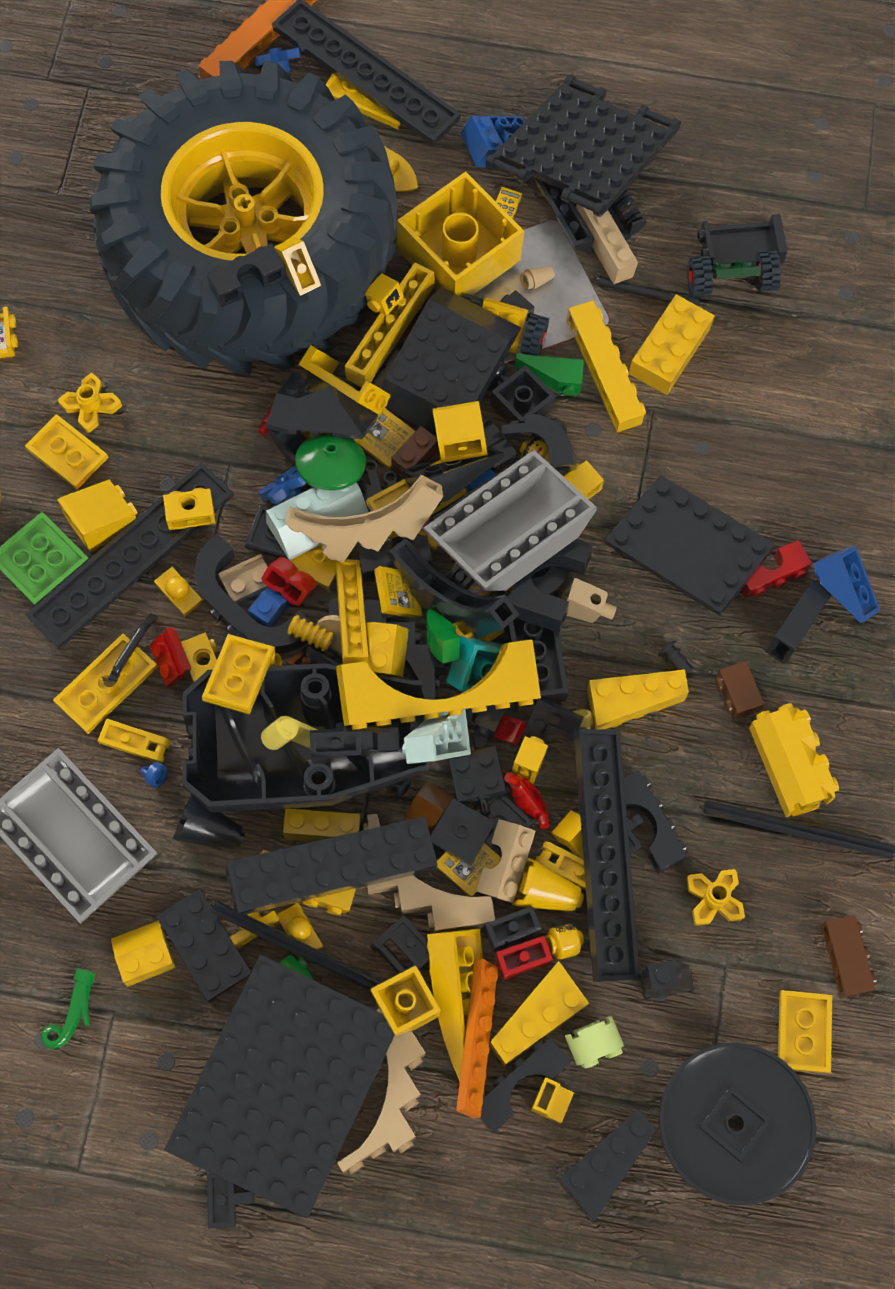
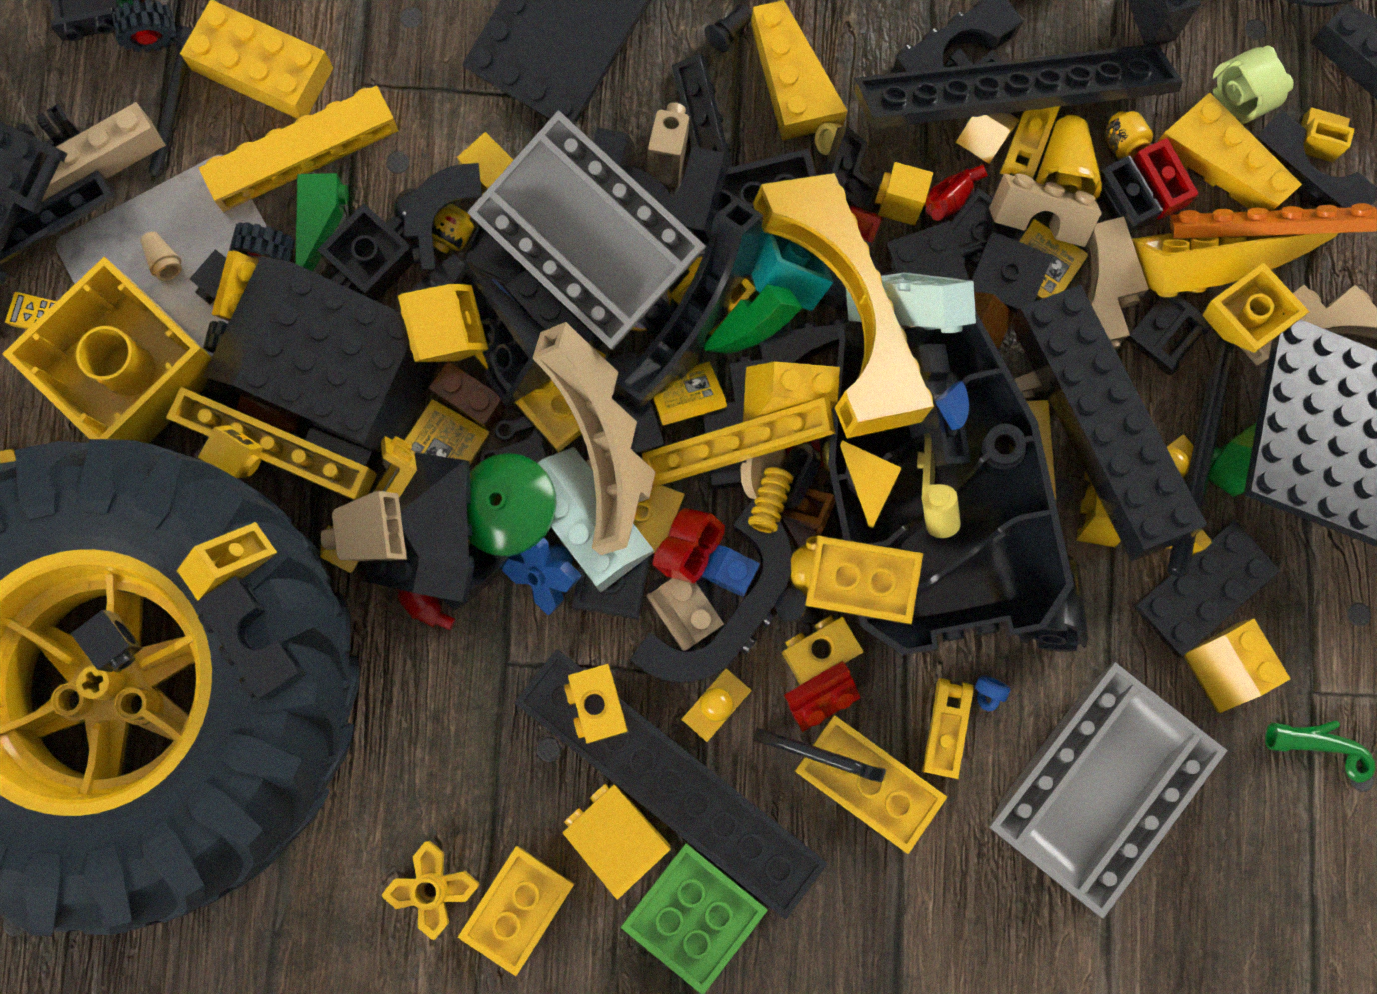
camera: 95 degrees left, 10 degrees up
(260, 202) = (107, 642): none -> black brick
(307, 686) = (871, 478): none -> yellow tile
(319, 369) = (367, 529): none -> tan torso
(351, 745) = (954, 405): none -> blue tile
(606, 632) = (698, 98): none -> black hinge

